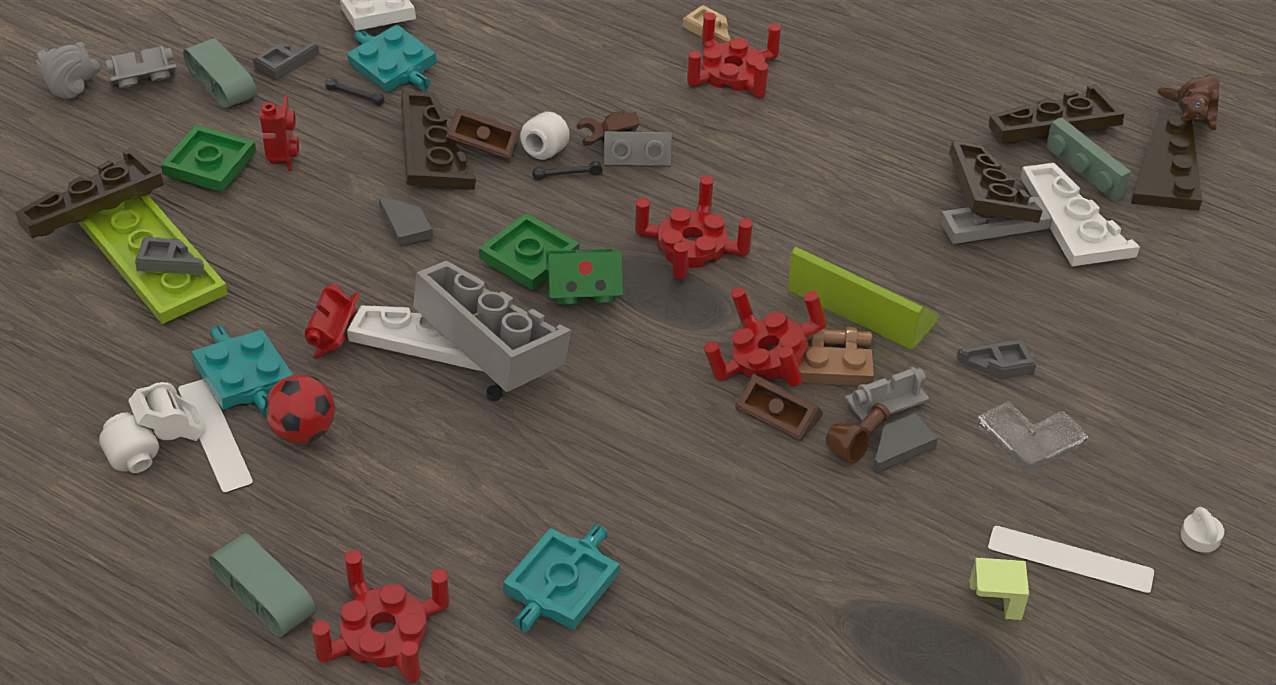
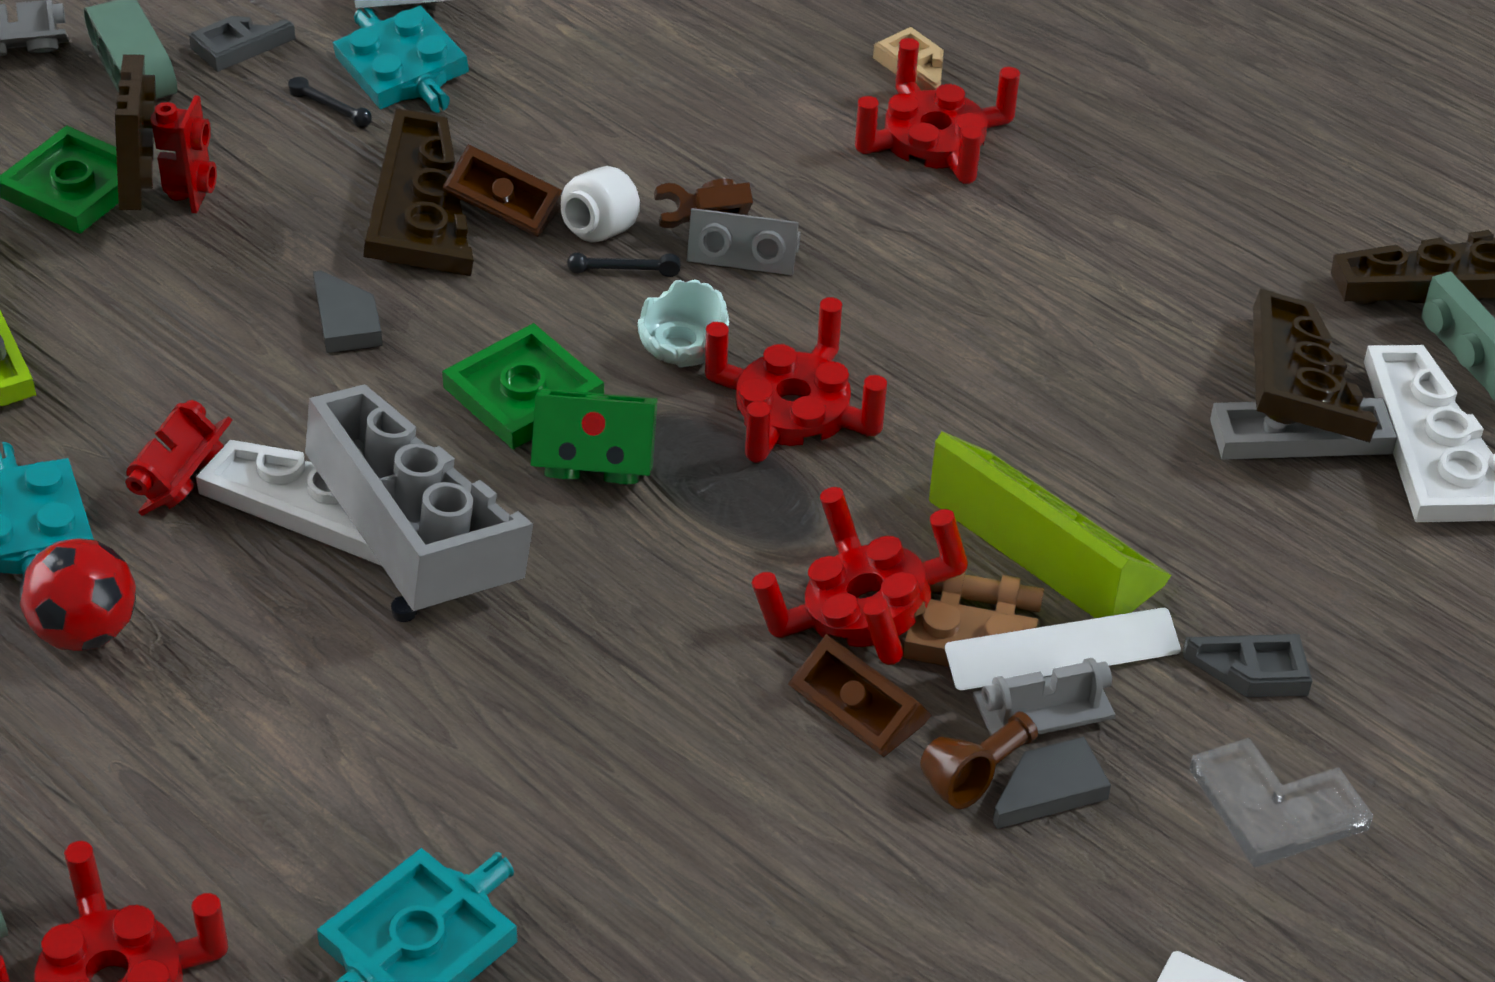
camera: 10 degrees right, 0 degrees up
(246, 123) = (134, 131): none -> dark brown wing
(615, 201) = (676, 322): none -> light aqua hair
(866, 370) = (1022, 652): none -> white sticker

